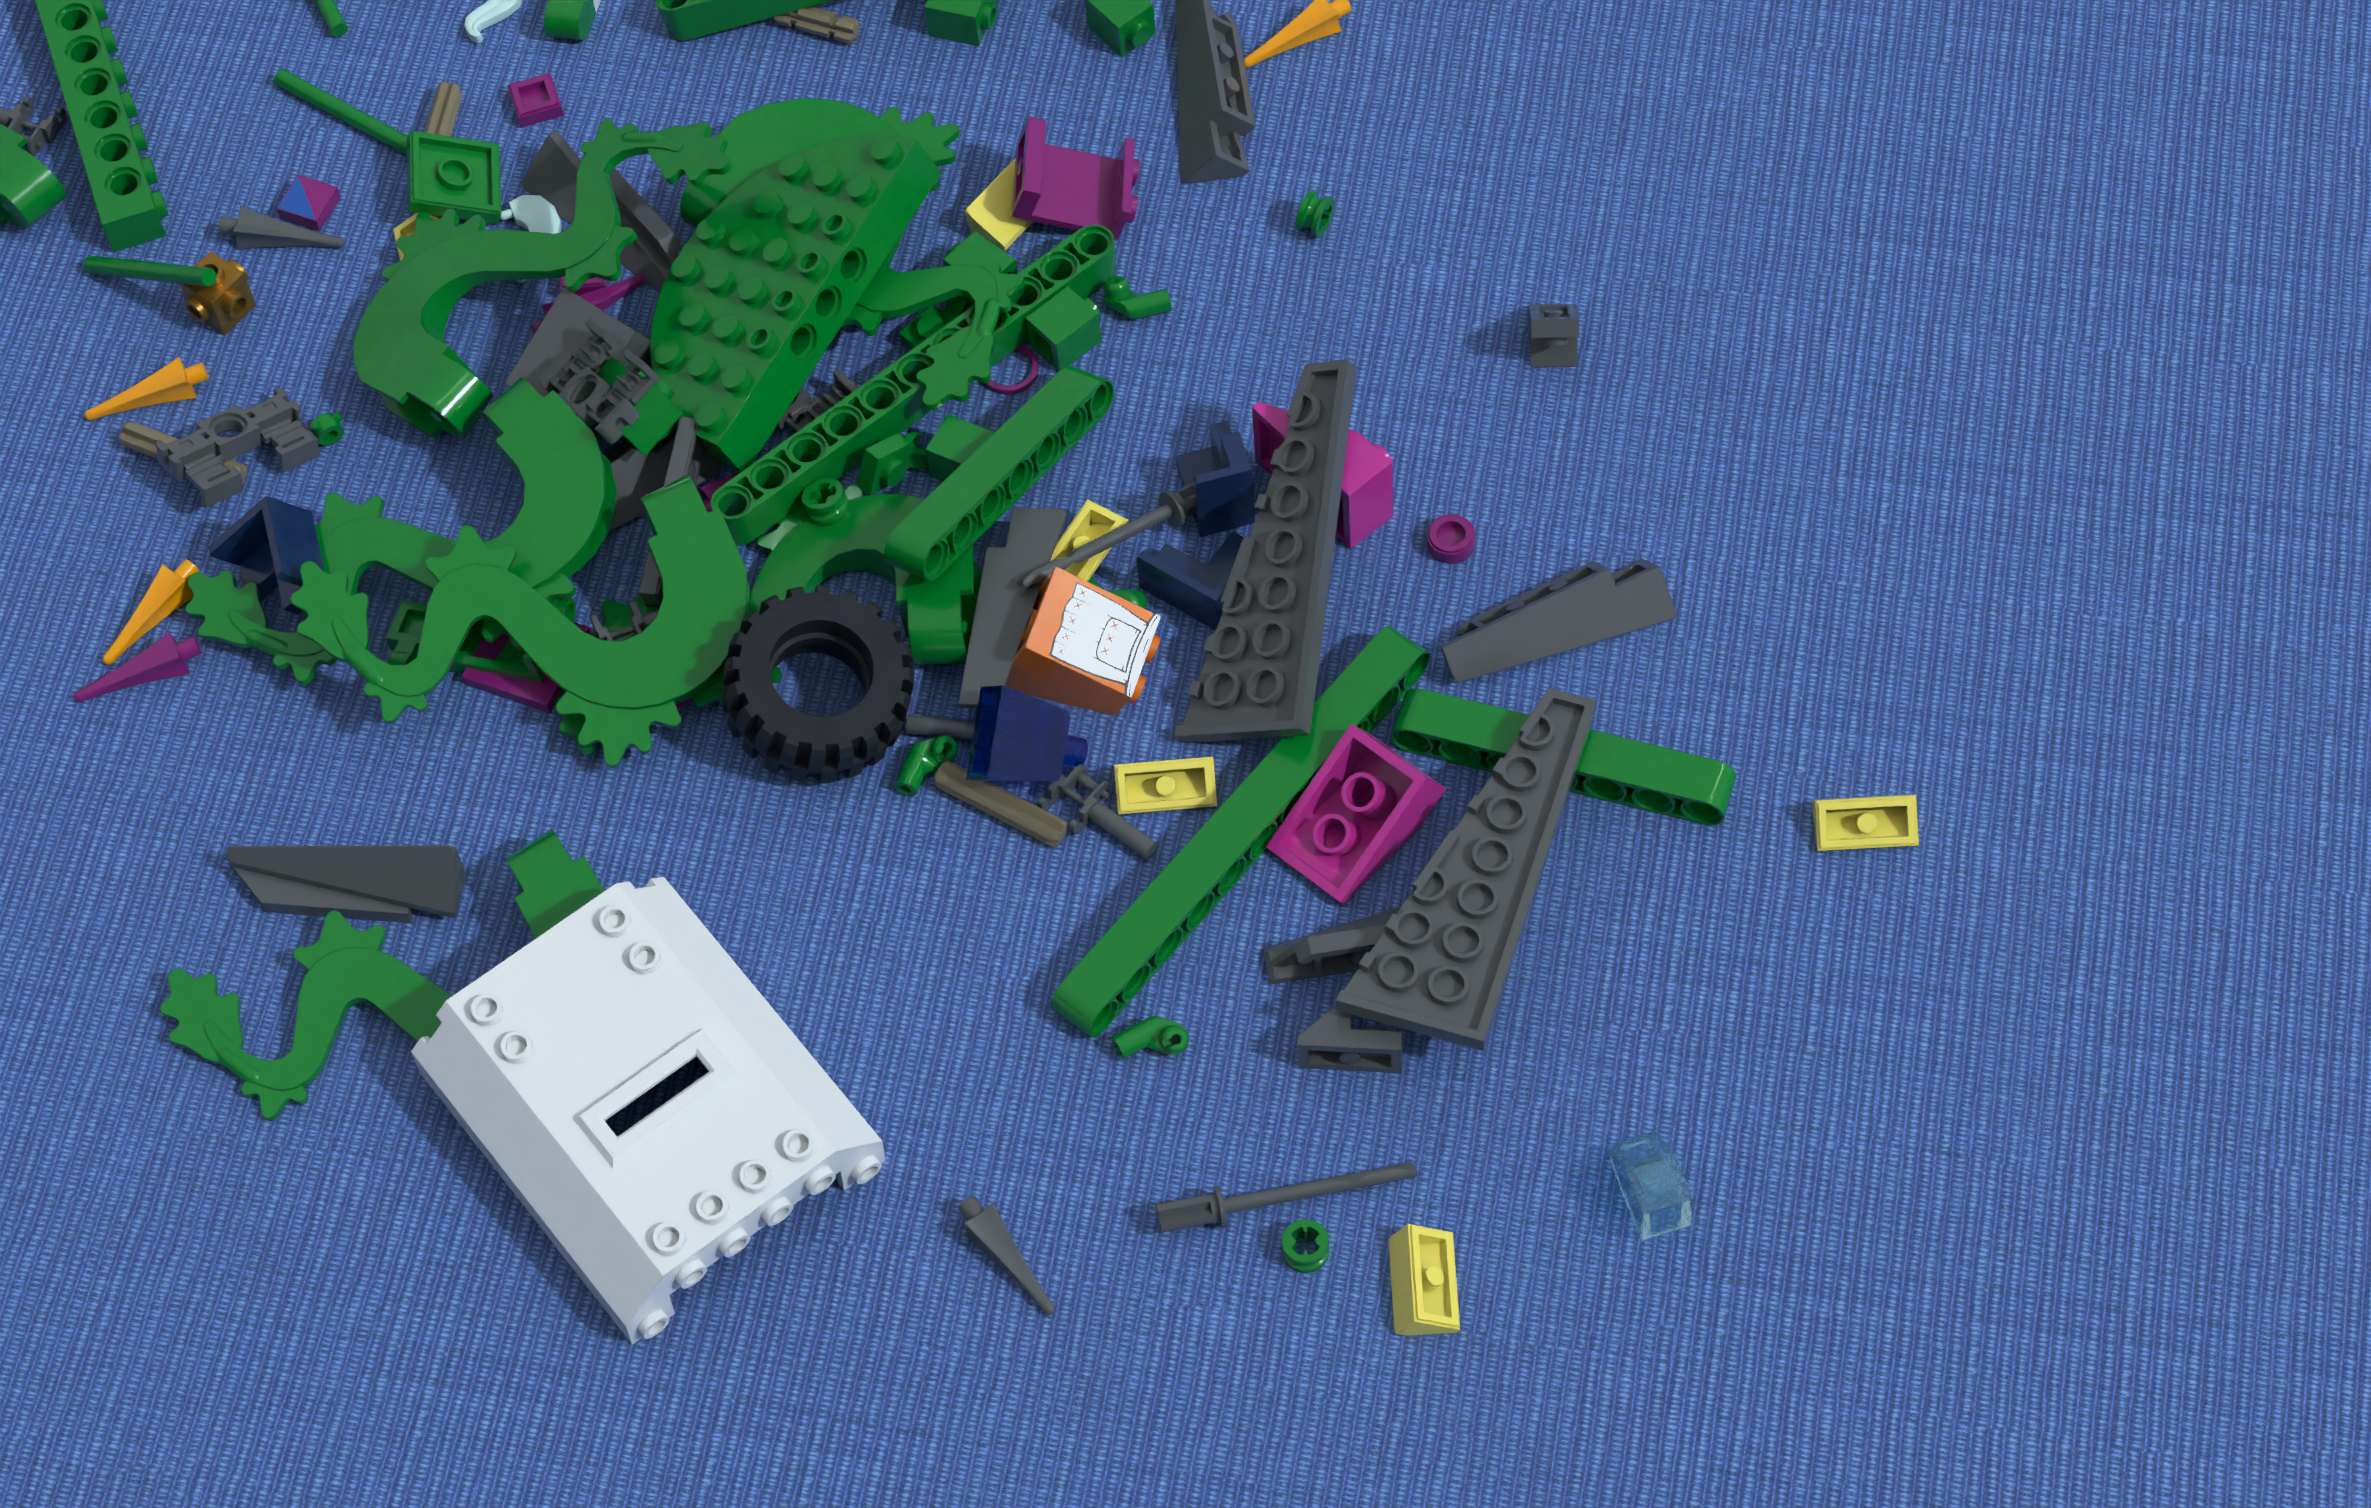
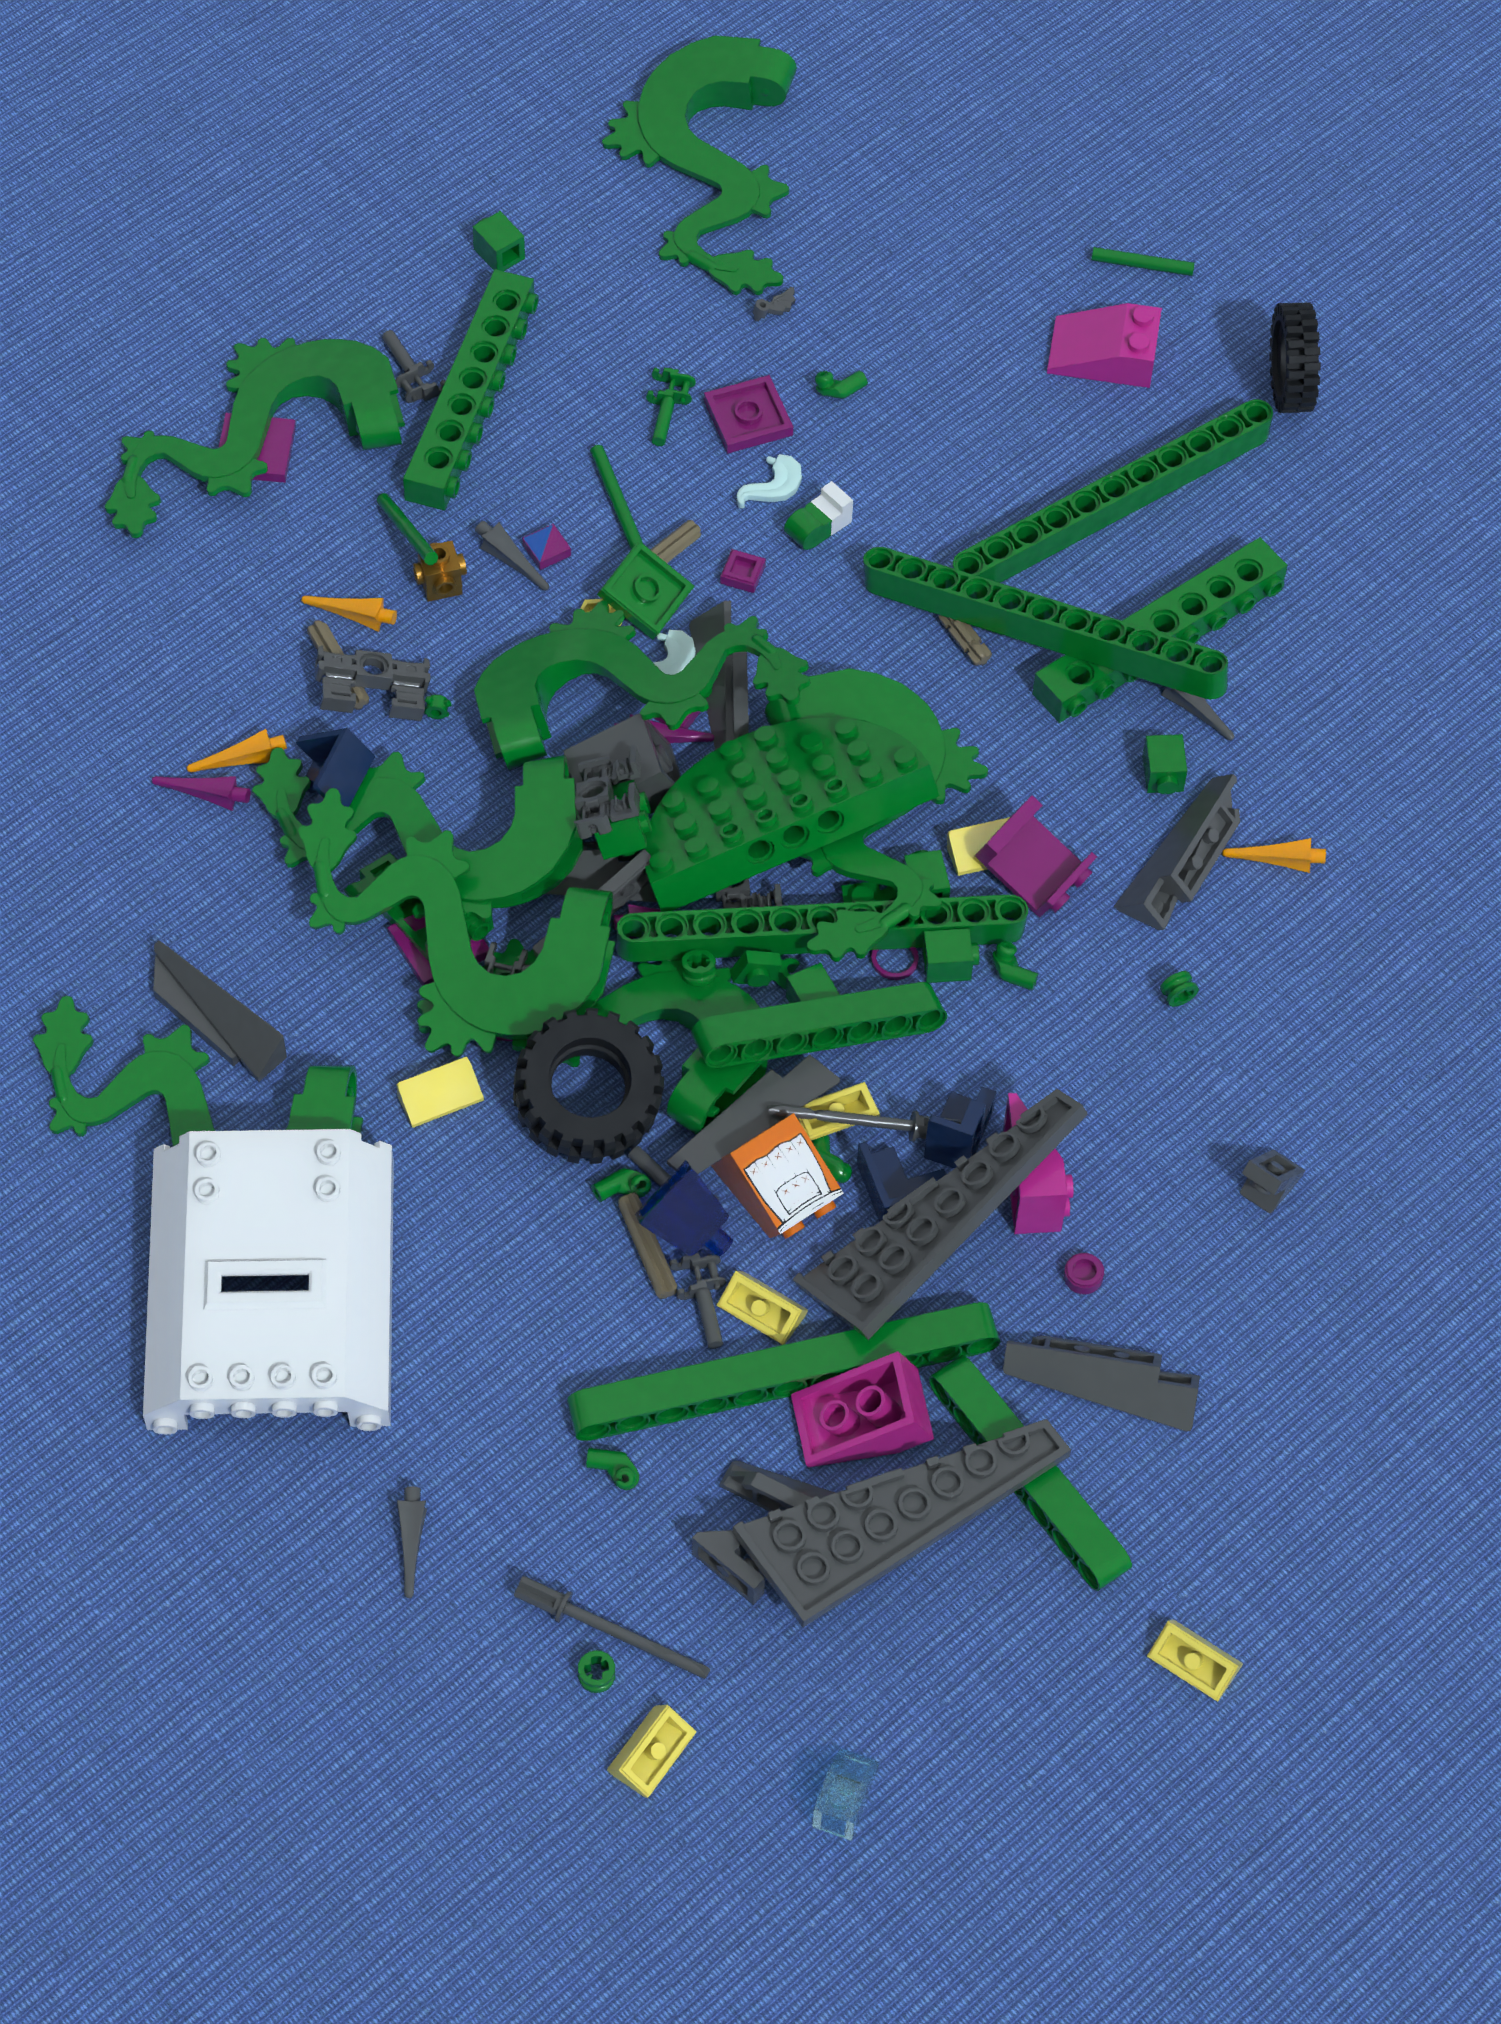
camera: 30 degrees right, 0 degrees up
(657, 800) = (439, 1092): none -> light yellow slope

